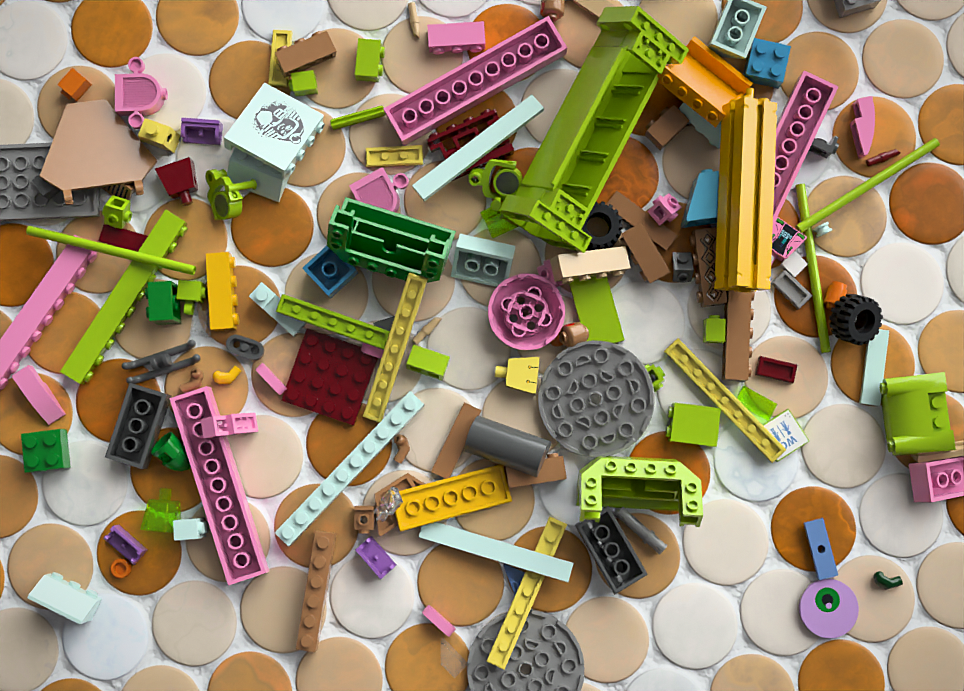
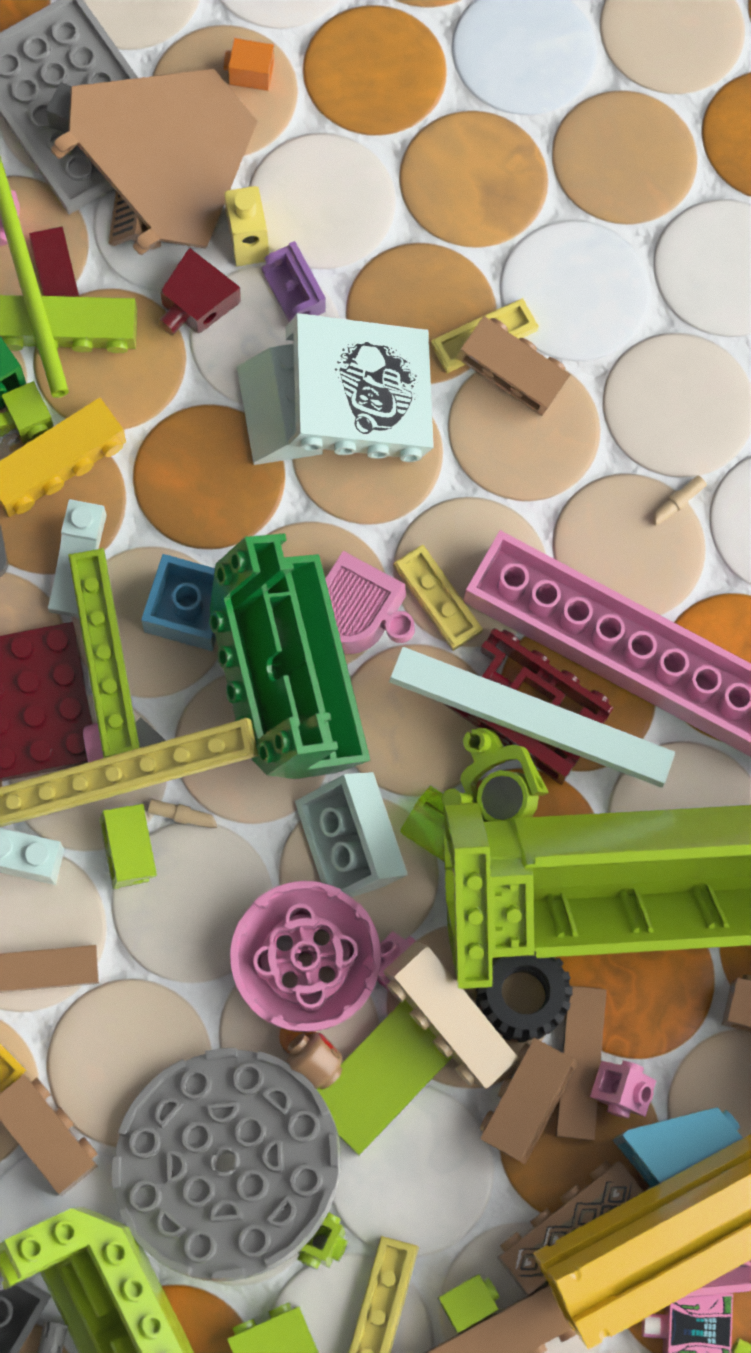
camera: 55 degrees right, 10 degrees down
(117, 212) = (88, 233): lime brick -> none
(138, 94) = (293, 159): bright pink piece -> none
(225, 203) = (203, 383): lime piece -> none
(303, 83) = (466, 391): lime brick -> none
(357, 117) = (462, 503): lime axle -> none
(369, 60) = (567, 467): lime brick -> none
(456, 37) = (692, 580): bright pink brick -> none
(507, 446) = (58, 1058): dark grey brick -> none
(520, 374) = (196, 1010): light yellow torso -> none
(682, 267) = (544, 1180): dark grey bracket -> none

